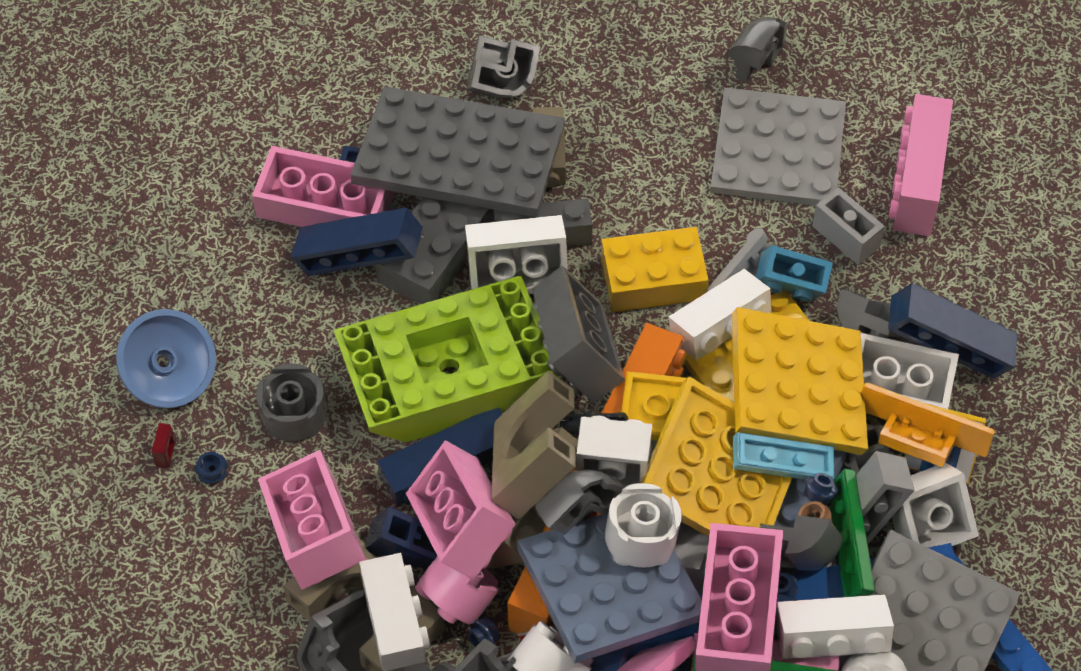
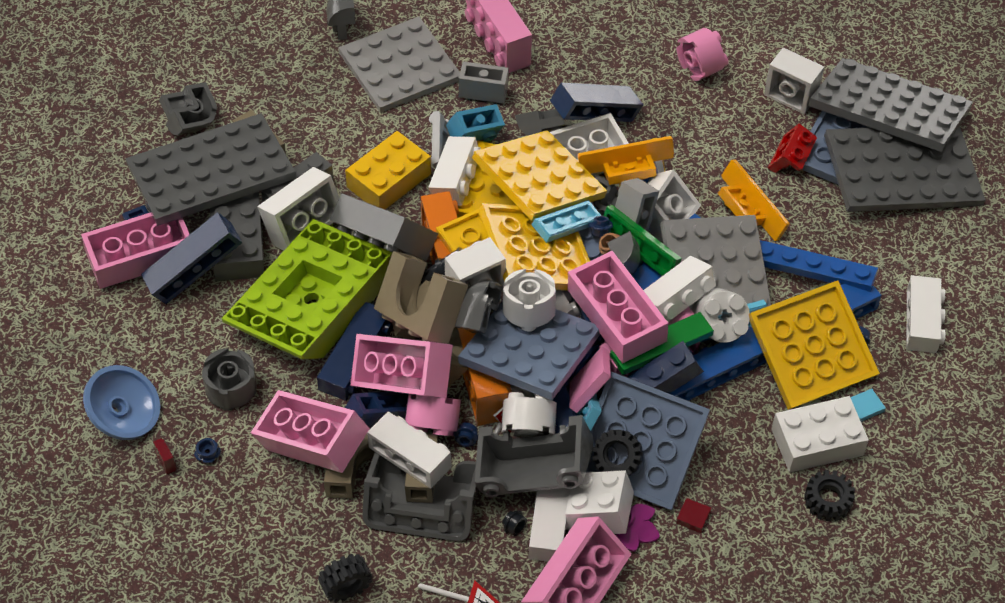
camera: 40 degrees left, 5 degrees down
(1044, 570) = (747, 198): none -> light orange bracket

